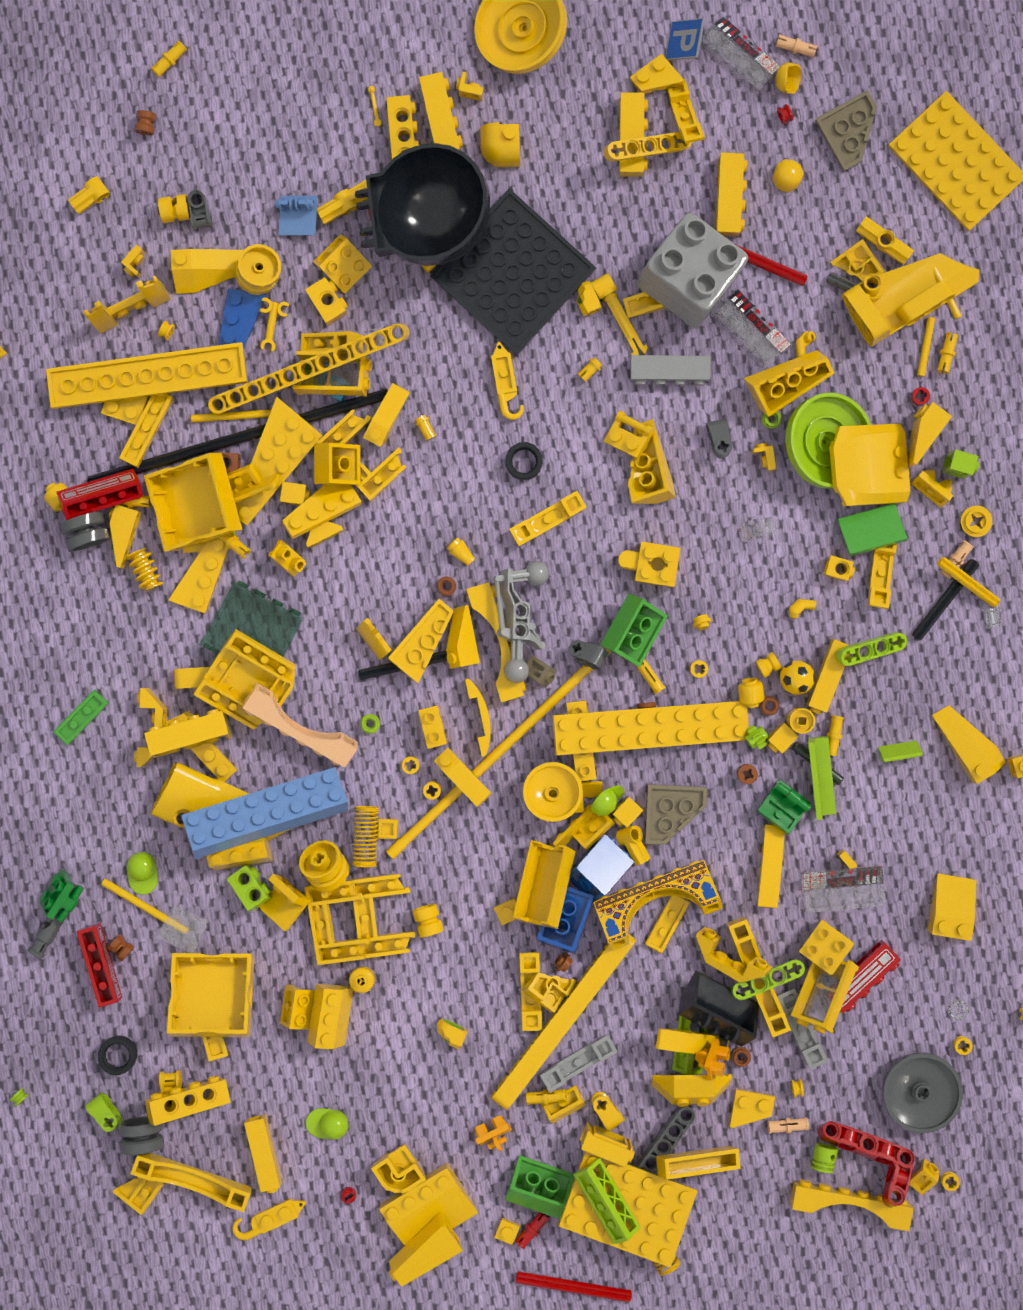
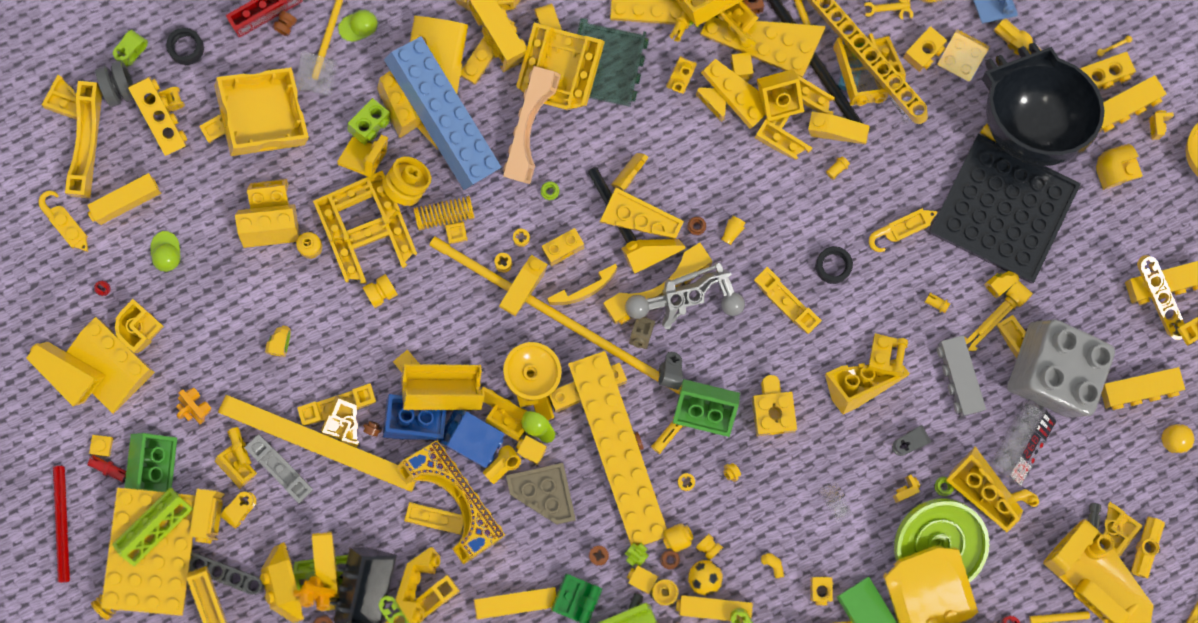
camera: 75 degrees right, 10 degrees down
(775, 268) = (1088, 448): red axle -> none

